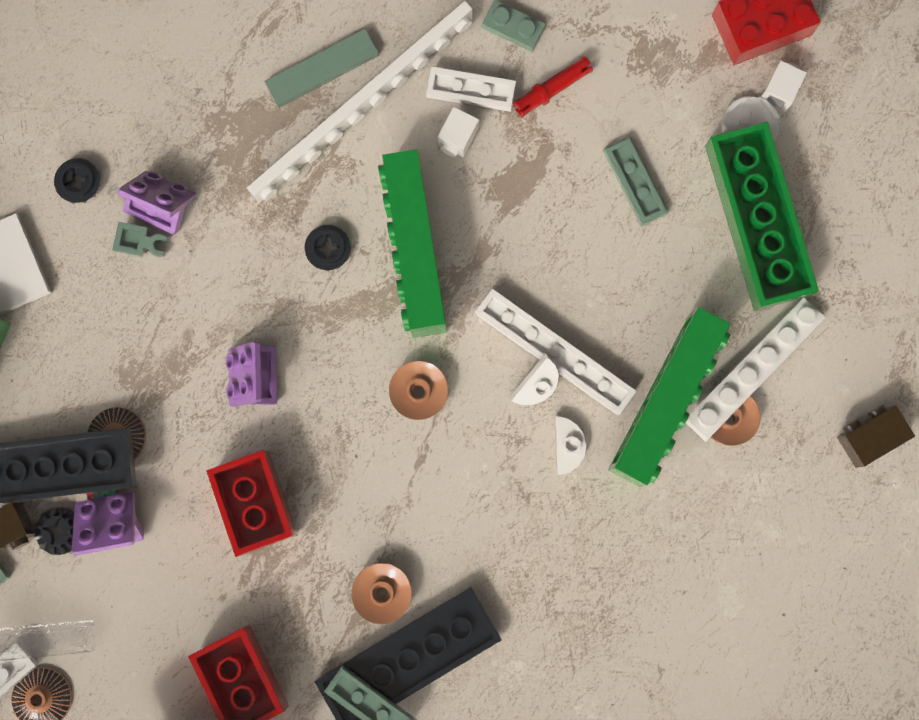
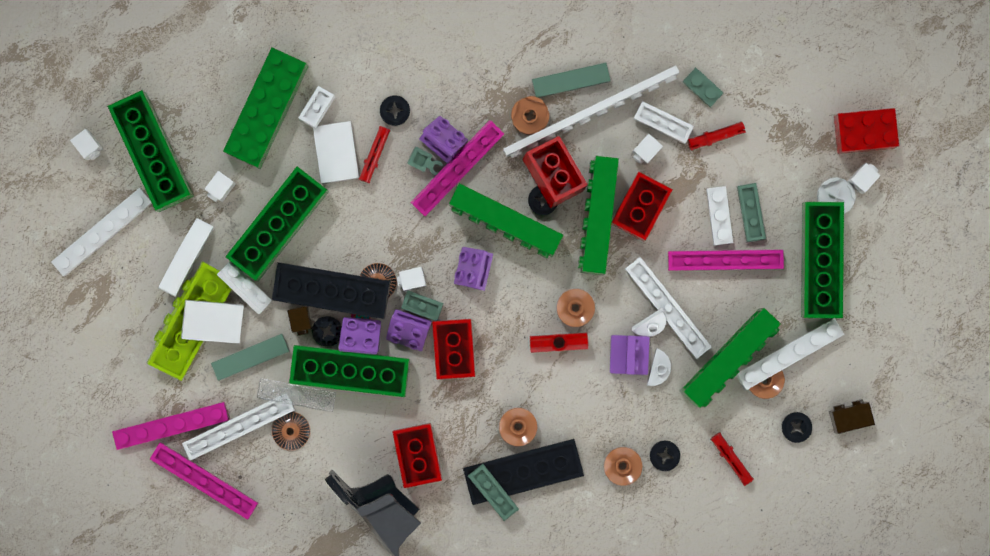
camera: 10 degrees right, 5 degrees up
(61, 262) = (383, 135): none -> red pin
(102, 581) = (349, 371): none -> green brick
(163, 417) = (411, 279): none -> white brick
(176, 494) = (408, 330): none -> medium lavender bracket
(188, 237) = (457, 168): none -> dark pink plate
(189, 452) = (422, 305): none -> sand green plate
(264, 122) = (524, 106): none -> nougat plate
(276, 290) = (506, 220): none -> green brick
(331, 199) = (554, 172): none -> red brick
(388, 454) = (545, 343): none -> red piece
(472, 214) = (641, 206): none -> red brick
(518, 437) = (629, 354): none -> medium lavender bracket
(559, 624) = (630, 473): none -> nougat dish
(591, 198) = (719, 215): none -> white plate
(618, 258) = (725, 260): none -> dark pink plate
(625, 583) = (669, 463): none -> black gear
(706, 542) = (727, 452): none -> red pin
(810, 469) = (806, 427): none -> black gear

